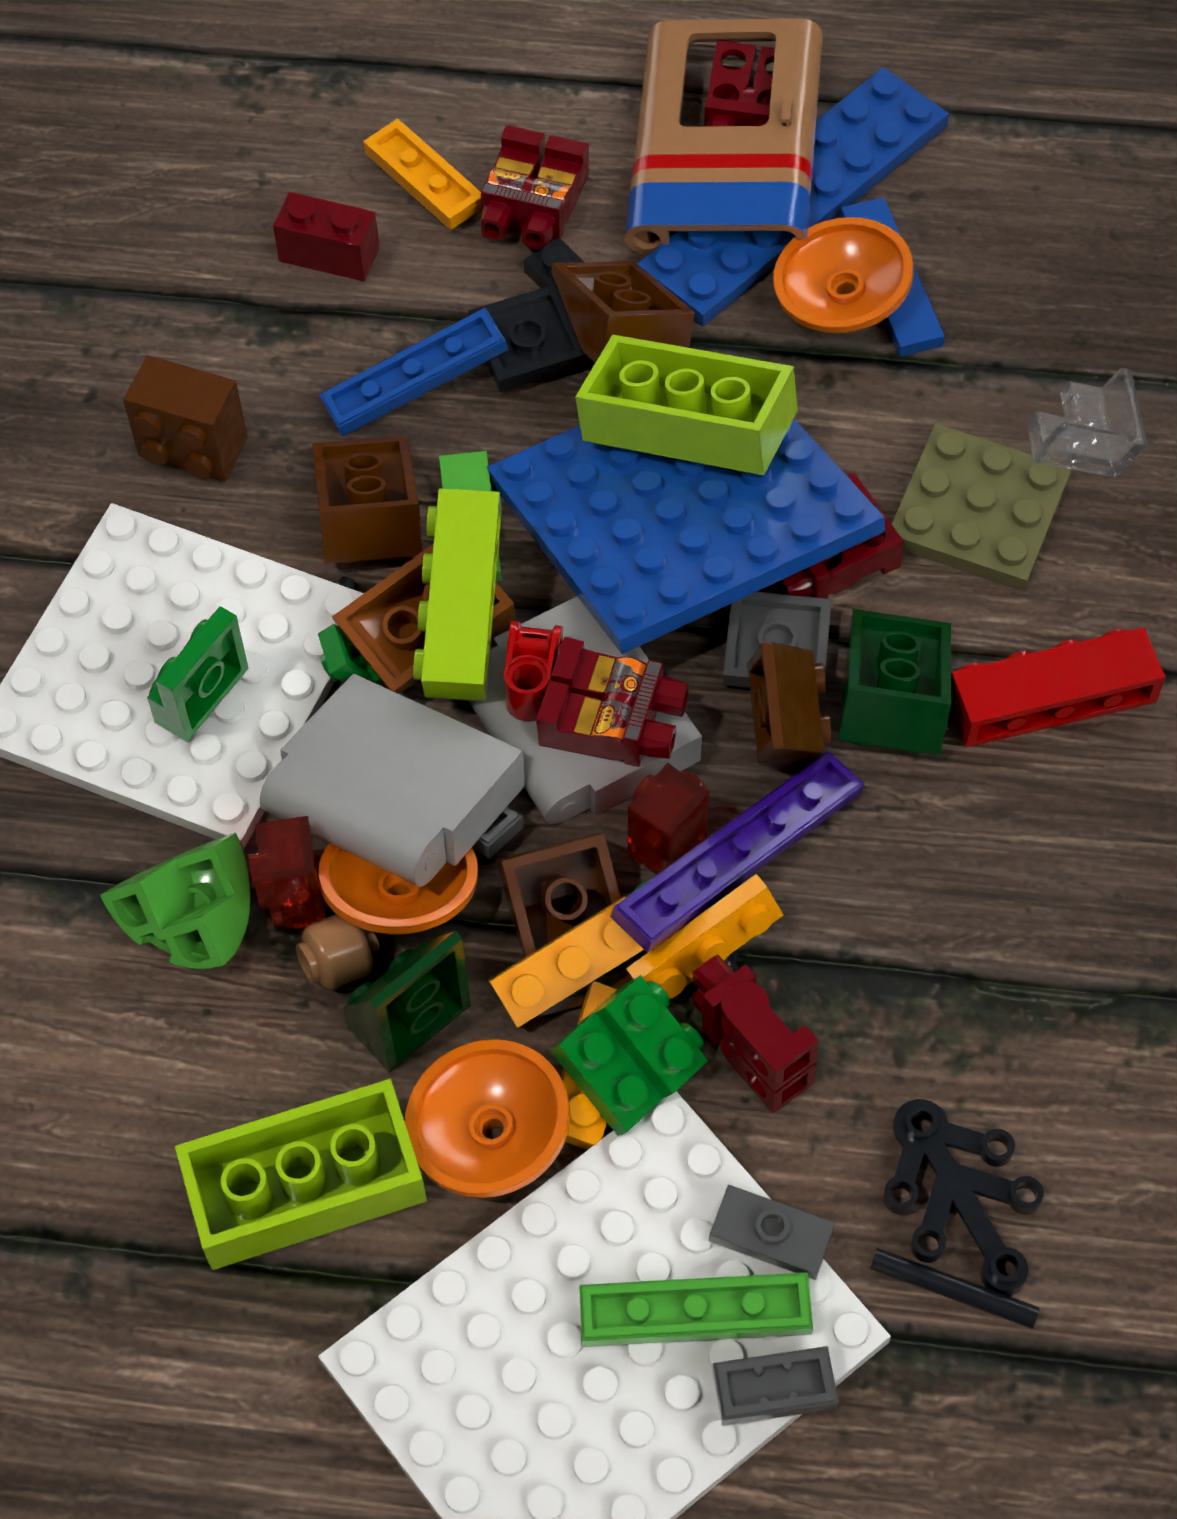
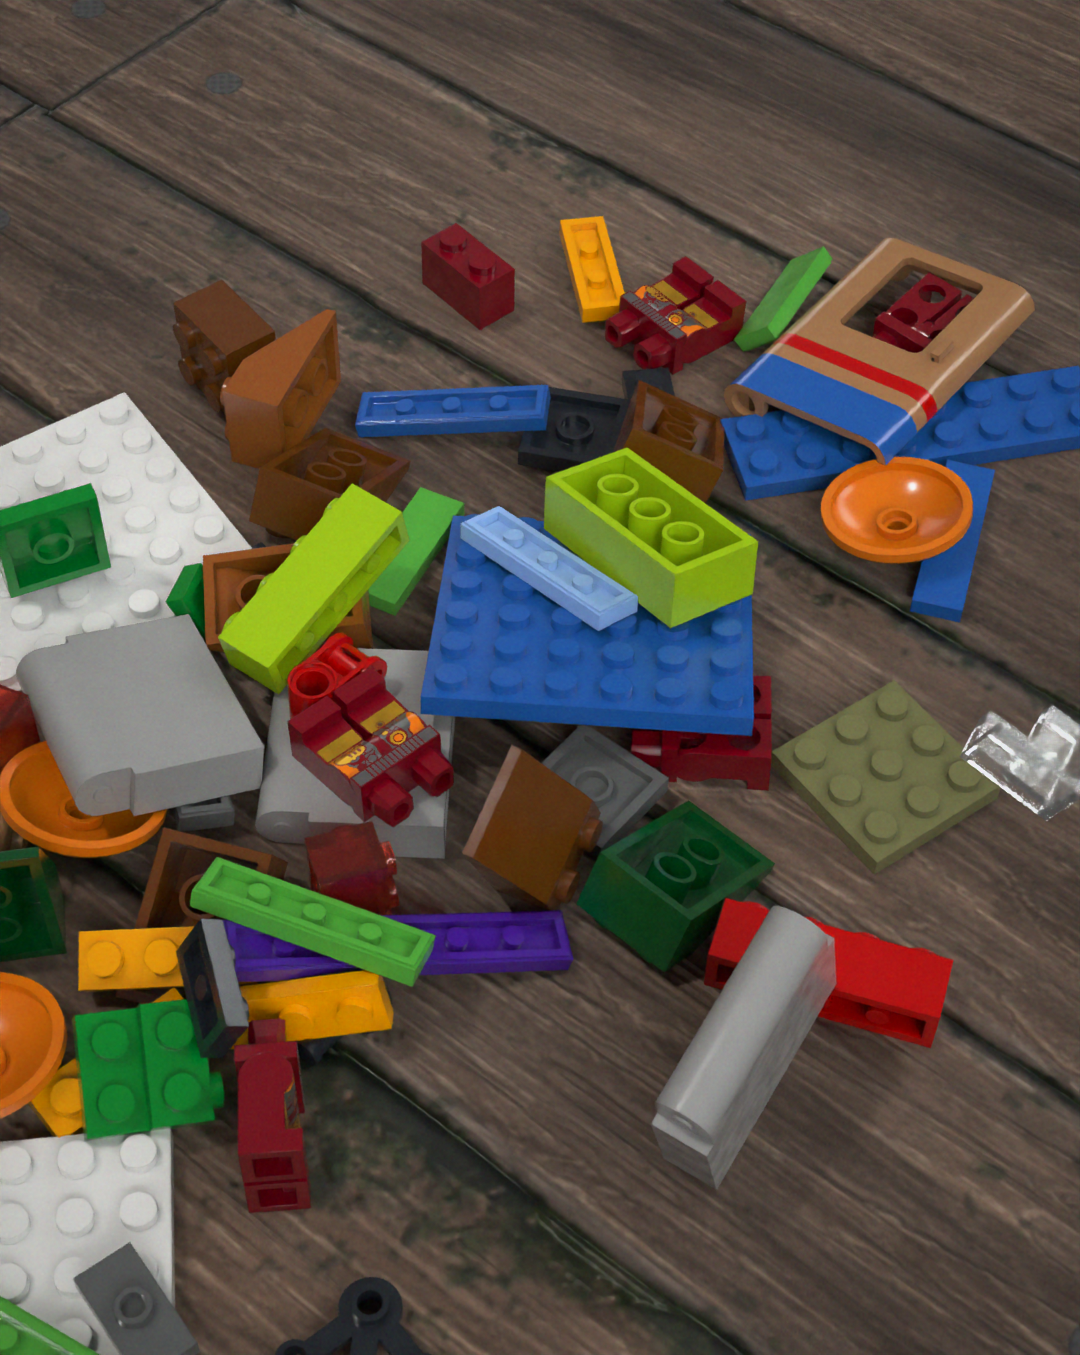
camera: 30 degrees right, 10 degrees down
(265, 448) = (281, 391): none -> dark orange slope
(607, 123) = (783, 299): none -> bright green tile
(618, 473) = (549, 568): none -> light blue tile
(654, 962) = (212, 988): none -> black plate
(680, 867) = (313, 921): none -> bright green tile
(1070, 776) = (745, 1045): none -> light grey piece

